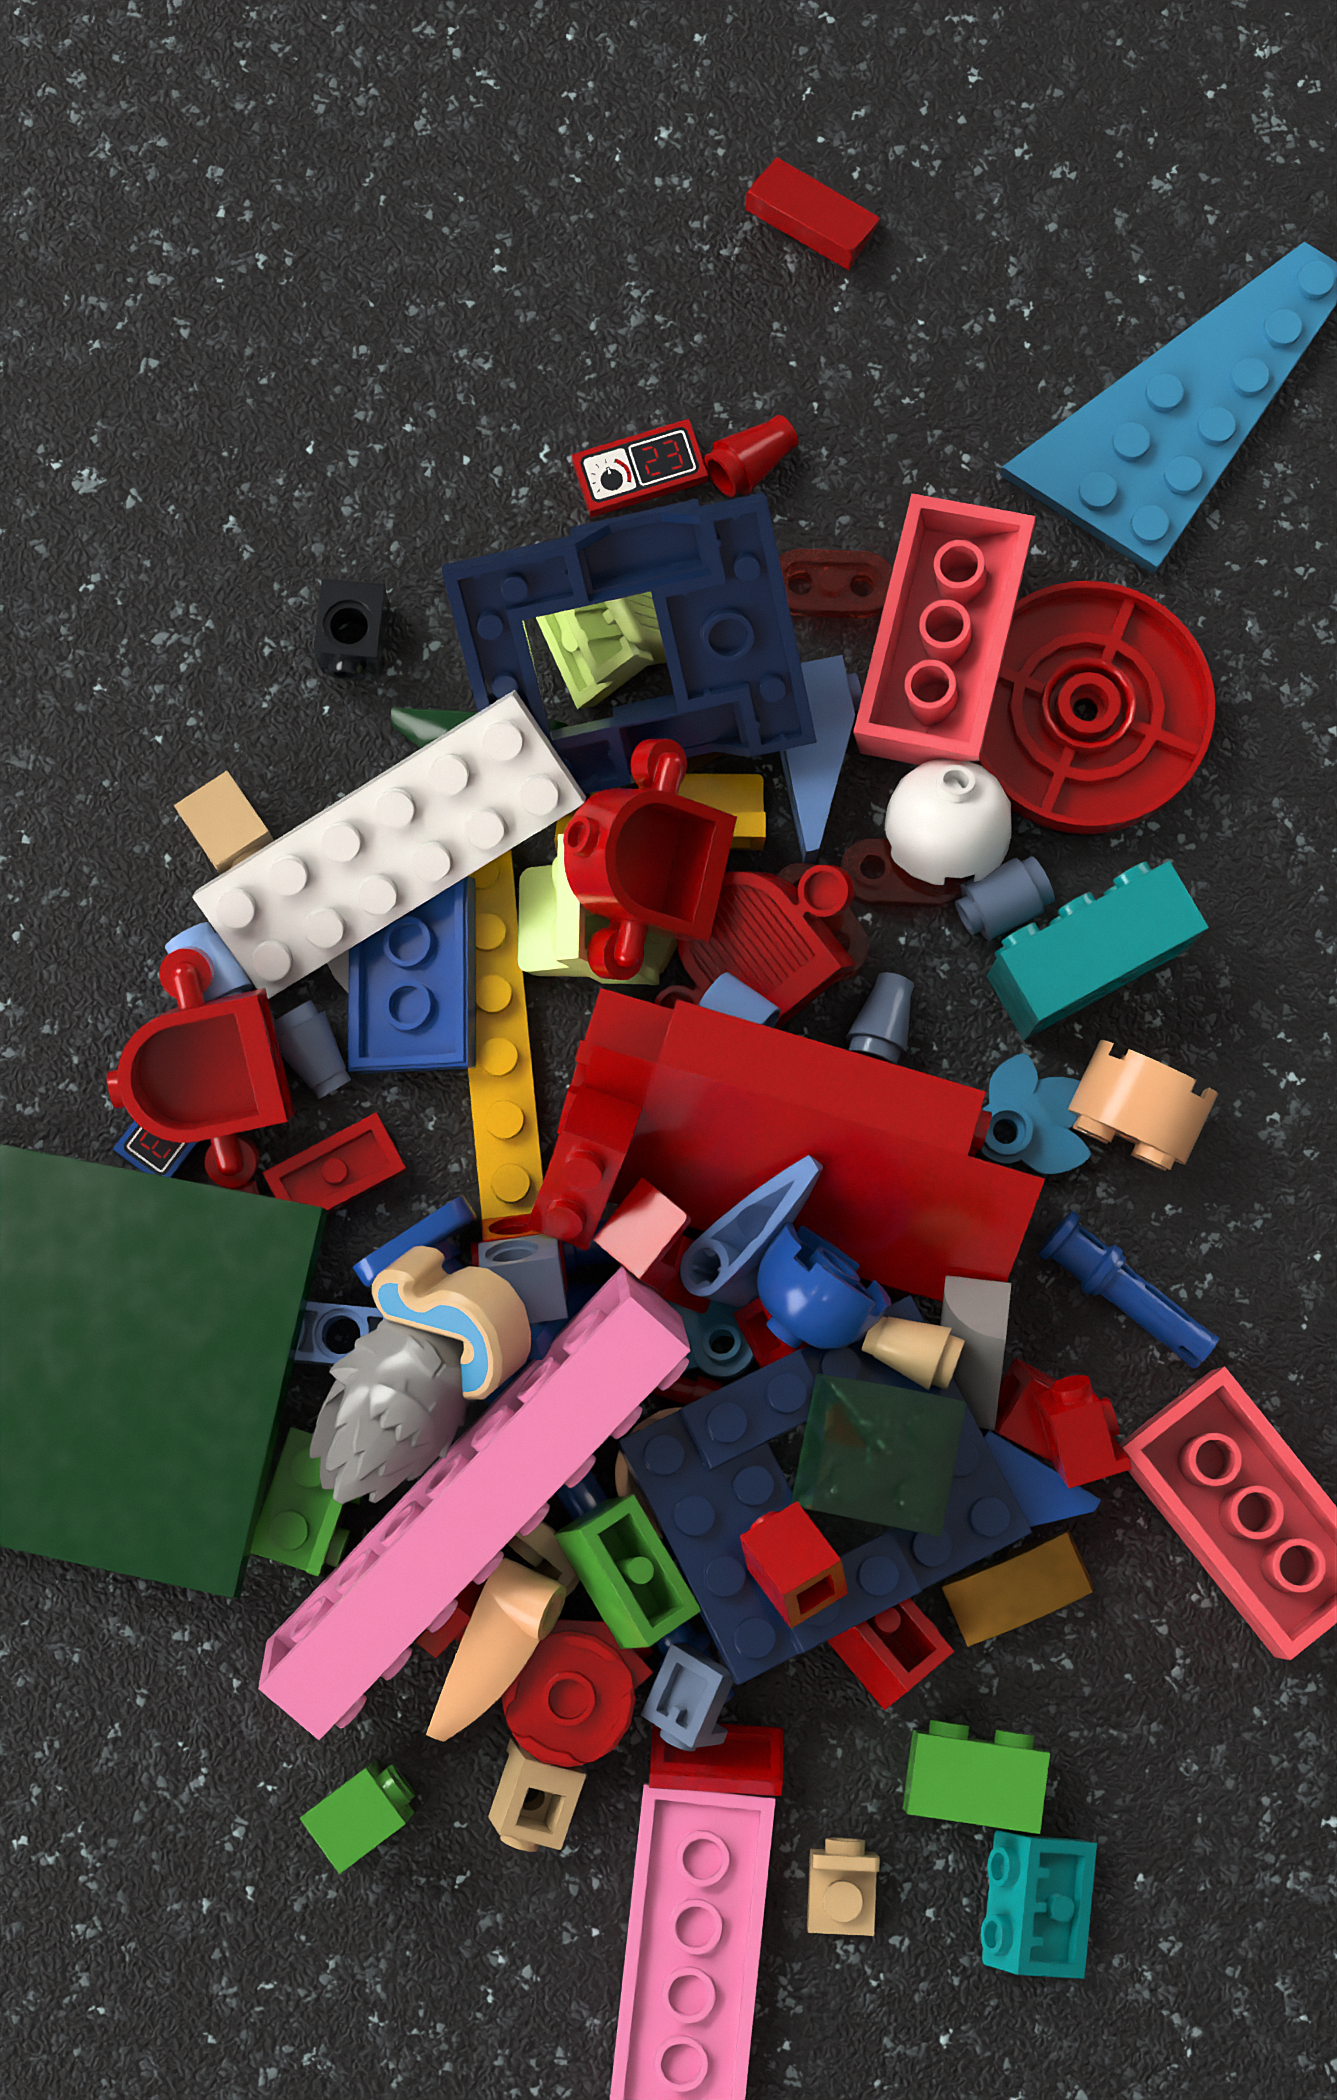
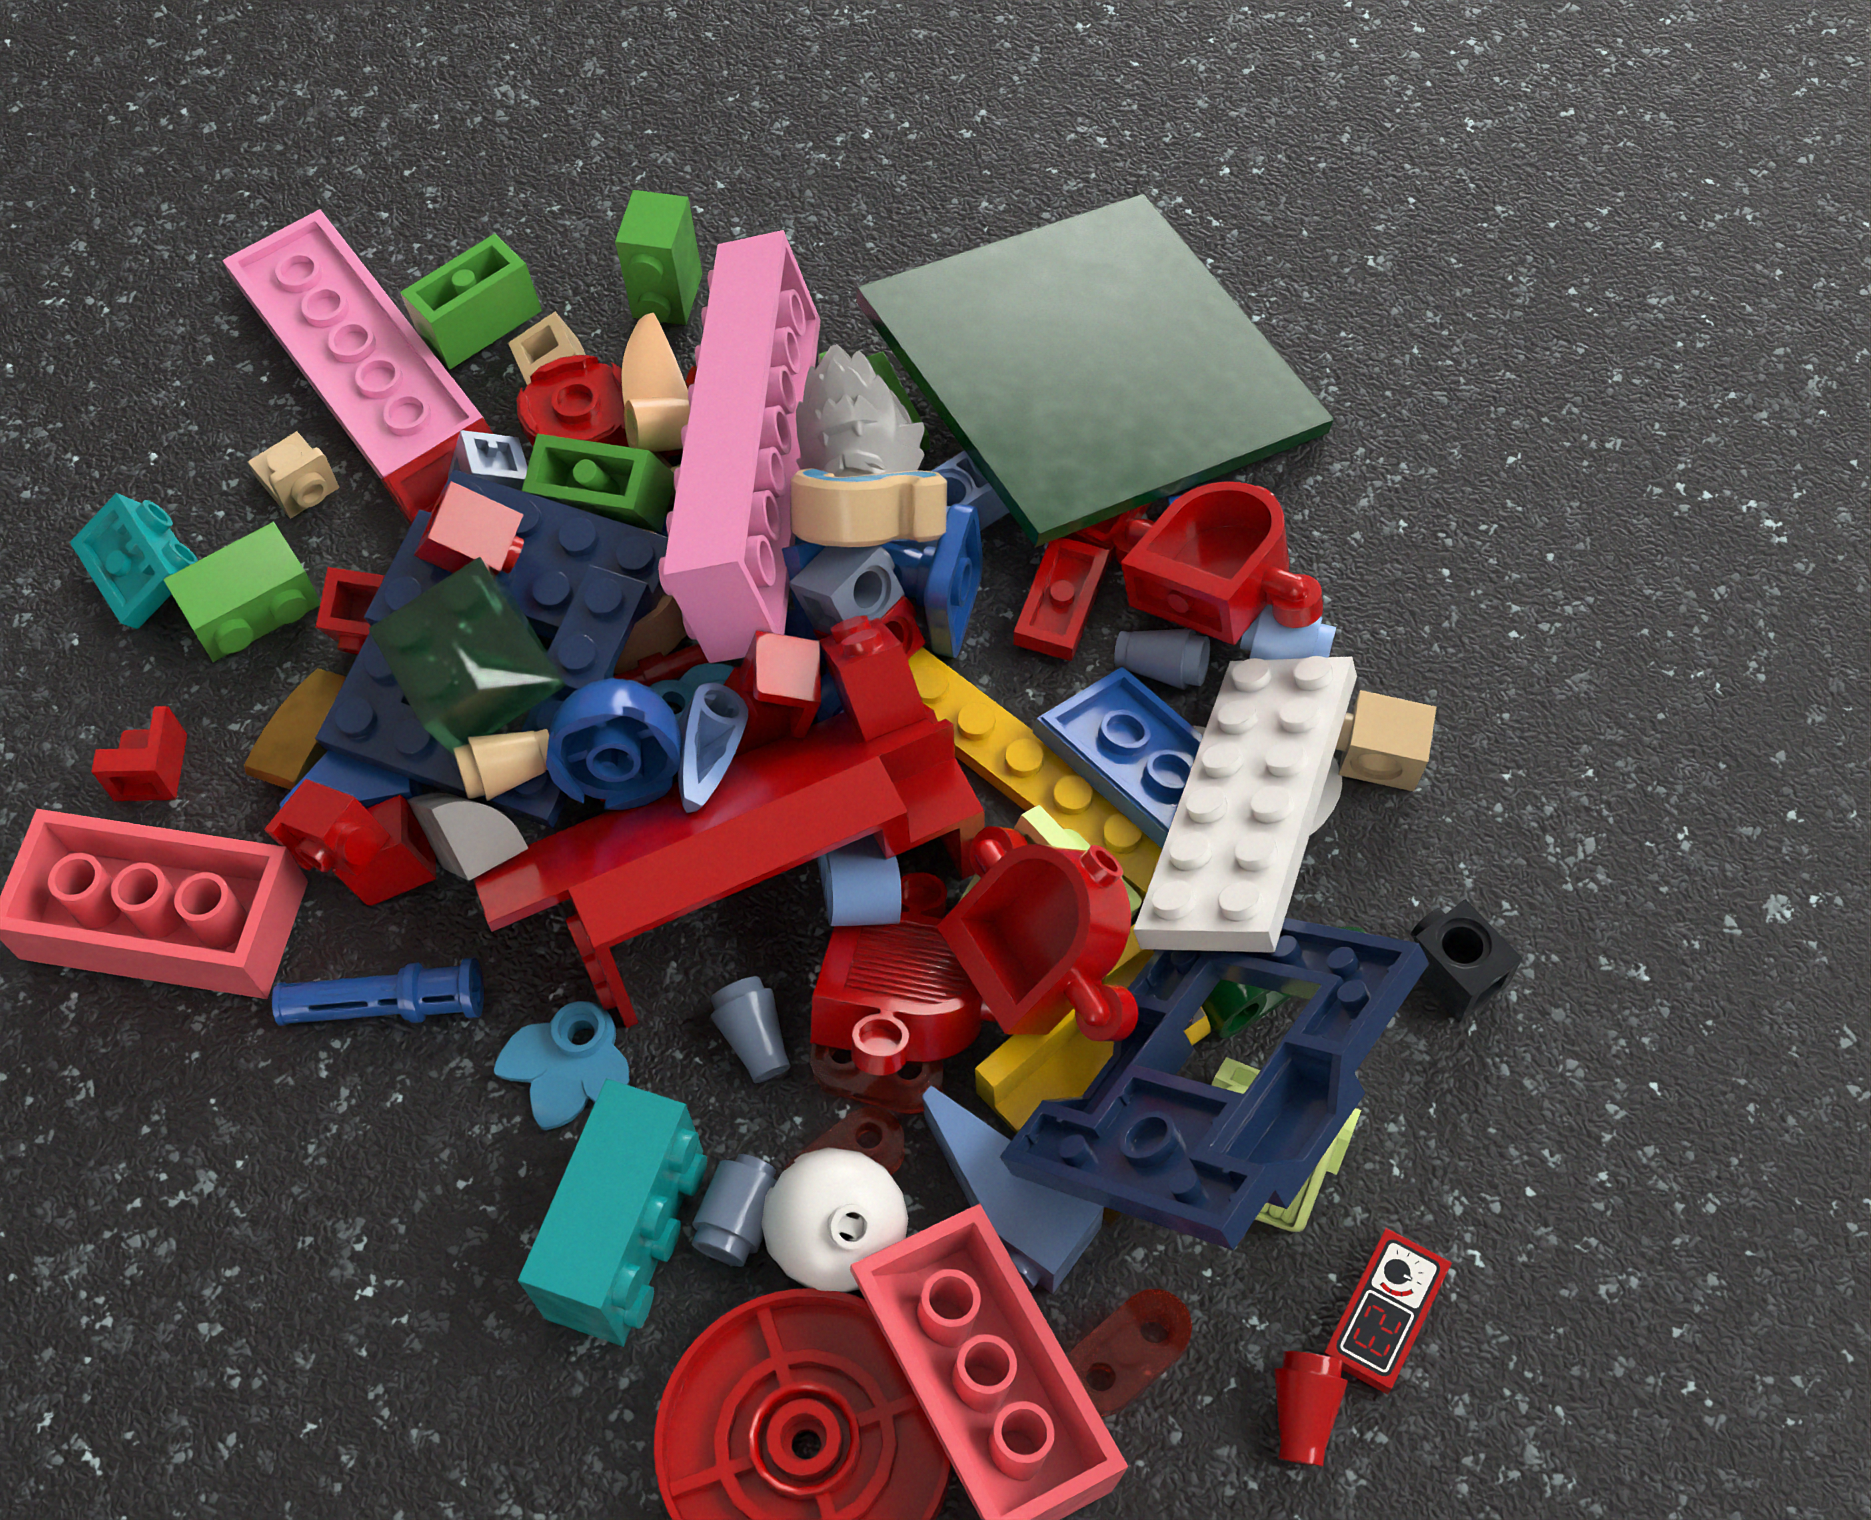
camera: 145 degrees right, 20 degrees down
(555, 1929) = (472, 301): none -> bright green brick
(1142, 1105) = (474, 1124): light nougat brick -> none
(1164, 1681) = (146, 762): none -> red panel

